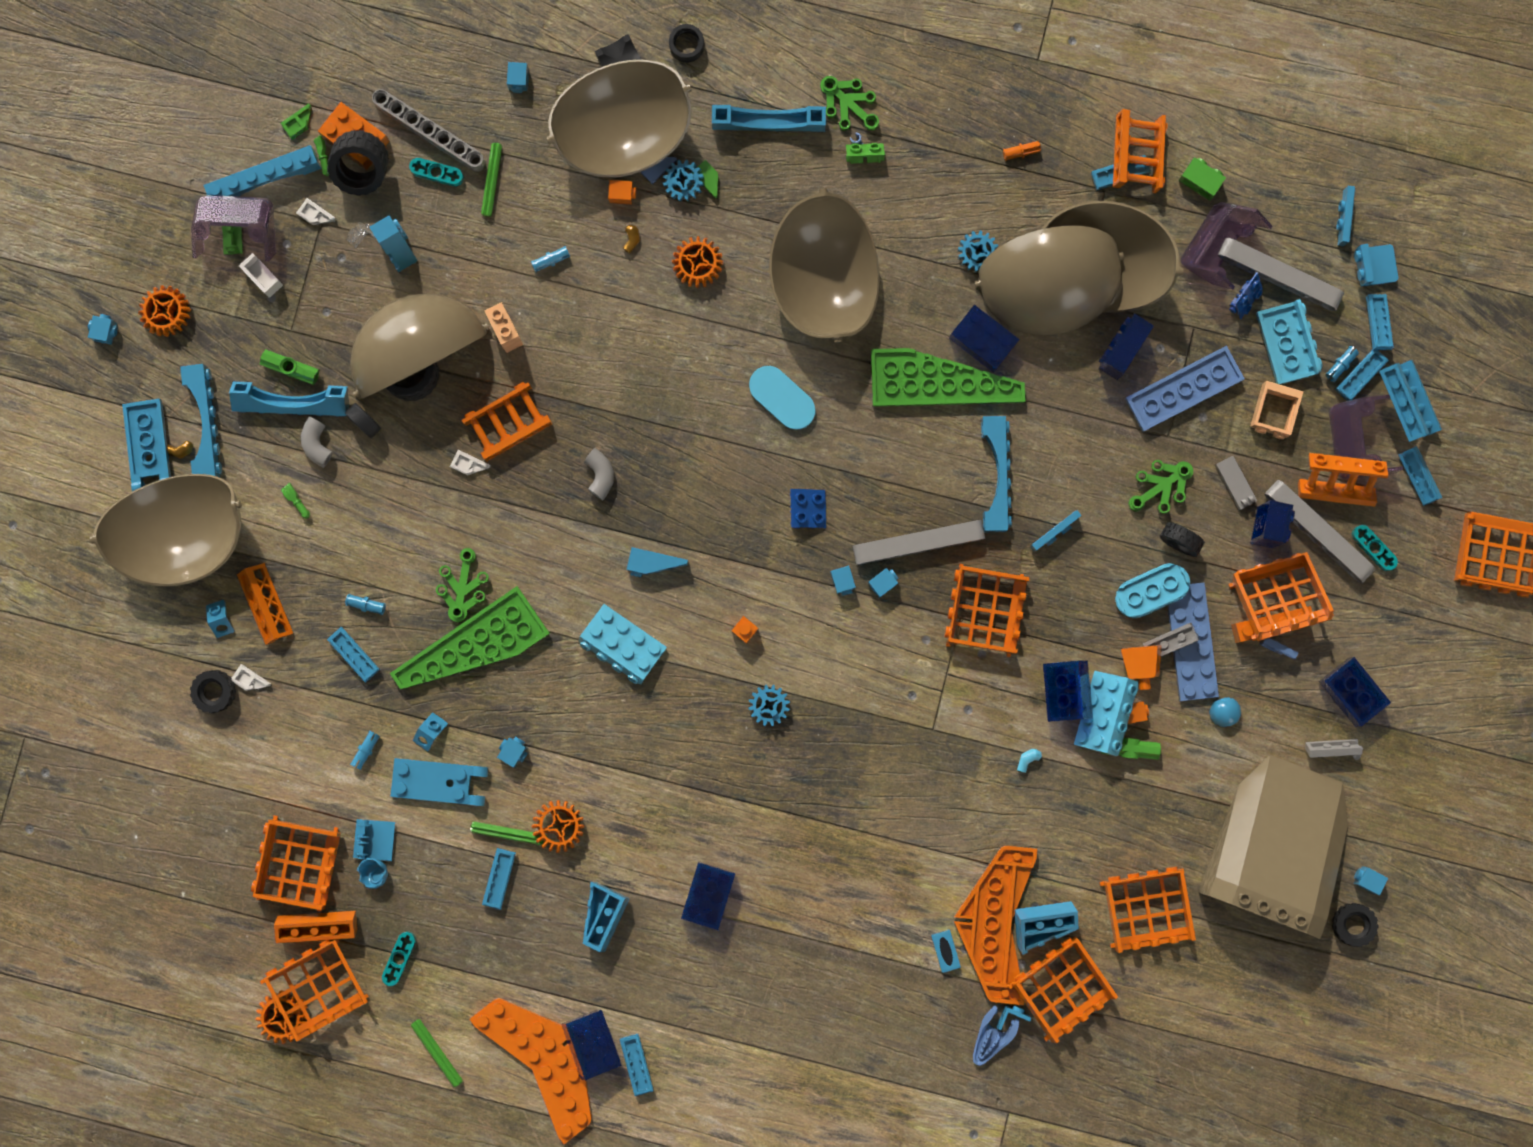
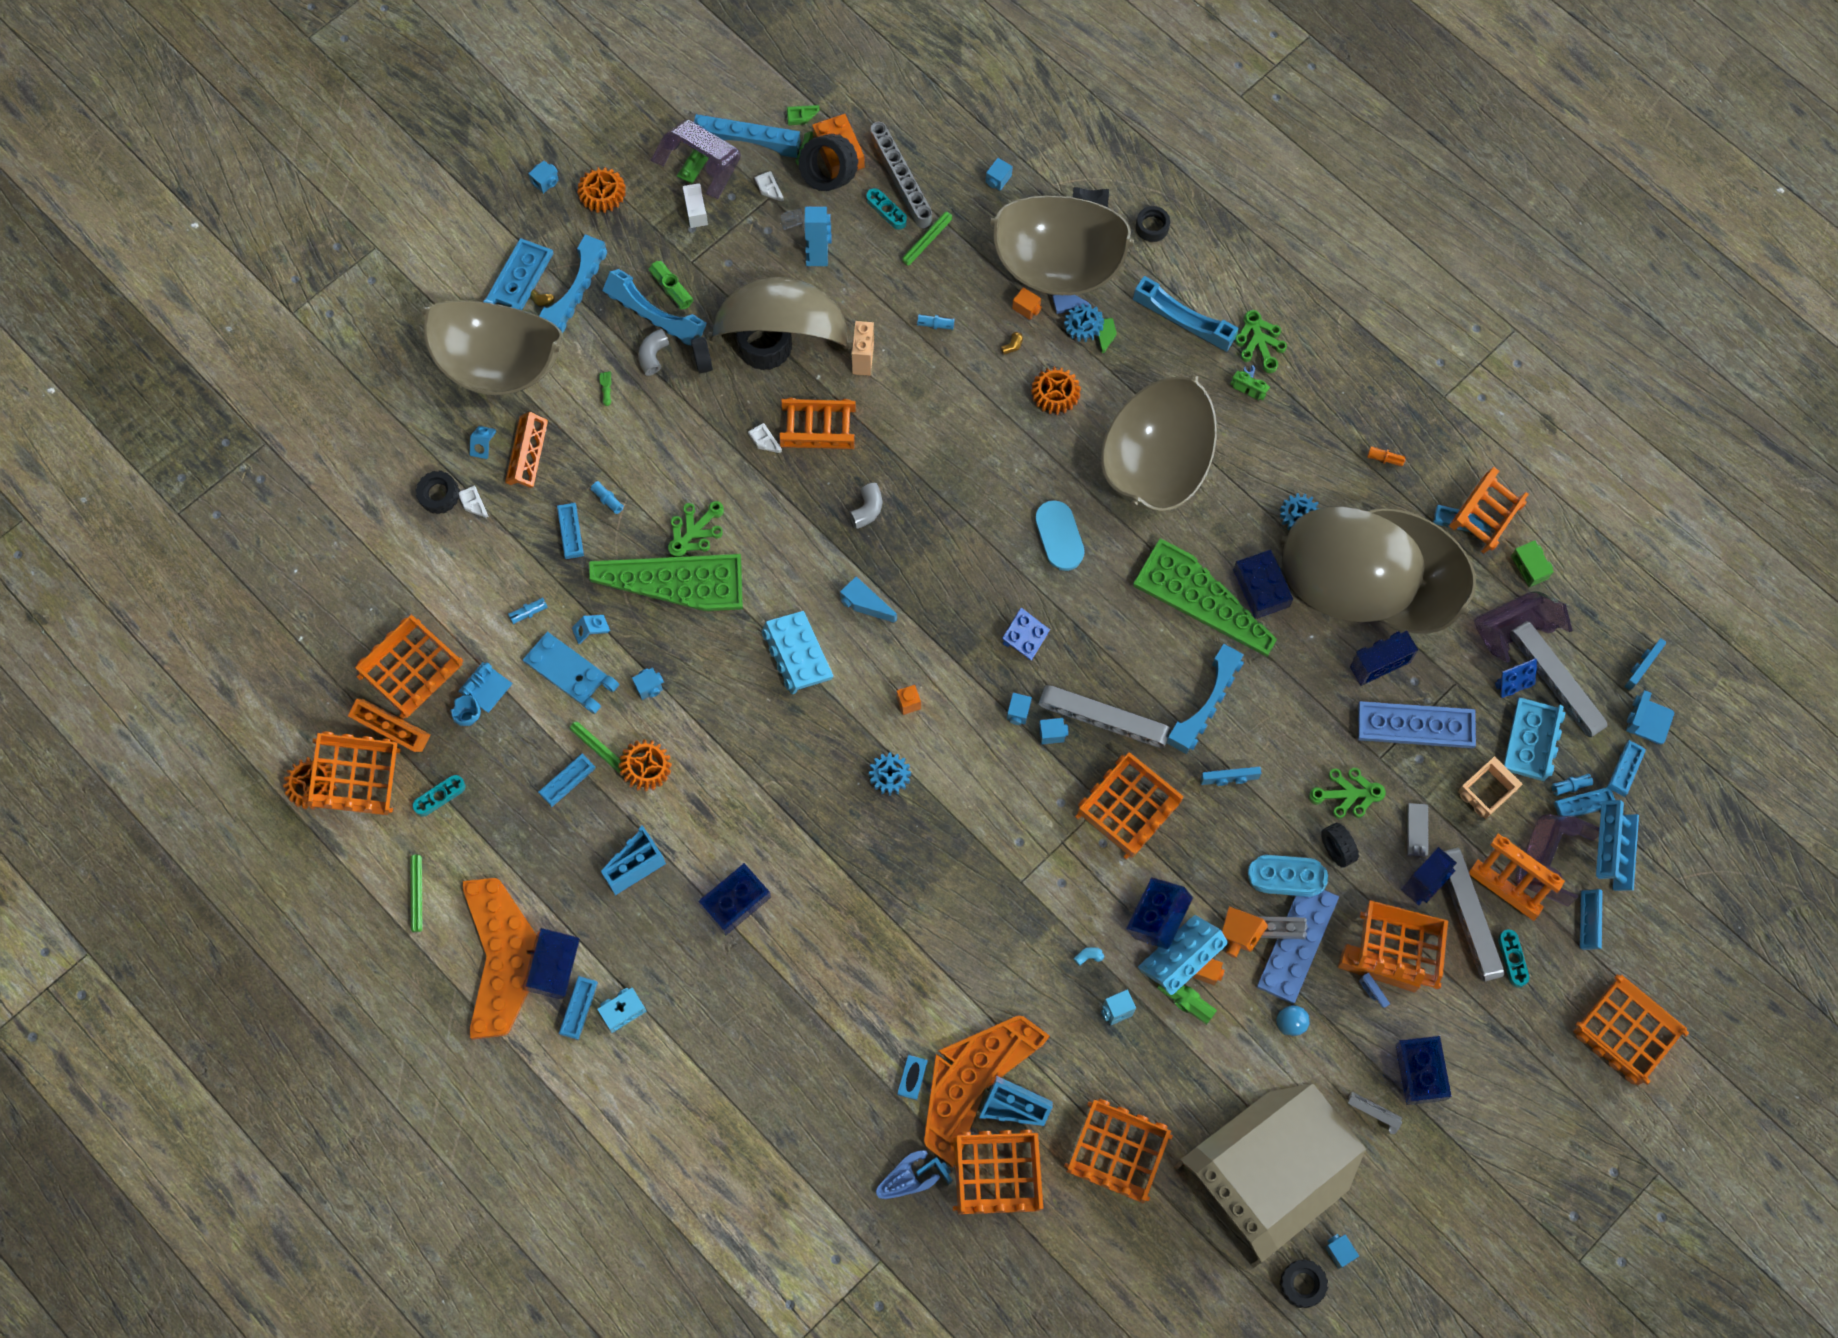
camera: 30 degrees right, 15 degrees down
(669, 1055) = (614, 1017): none -> medium azure brick
(1080, 792) = (1118, 1007): none -> medium azure brick

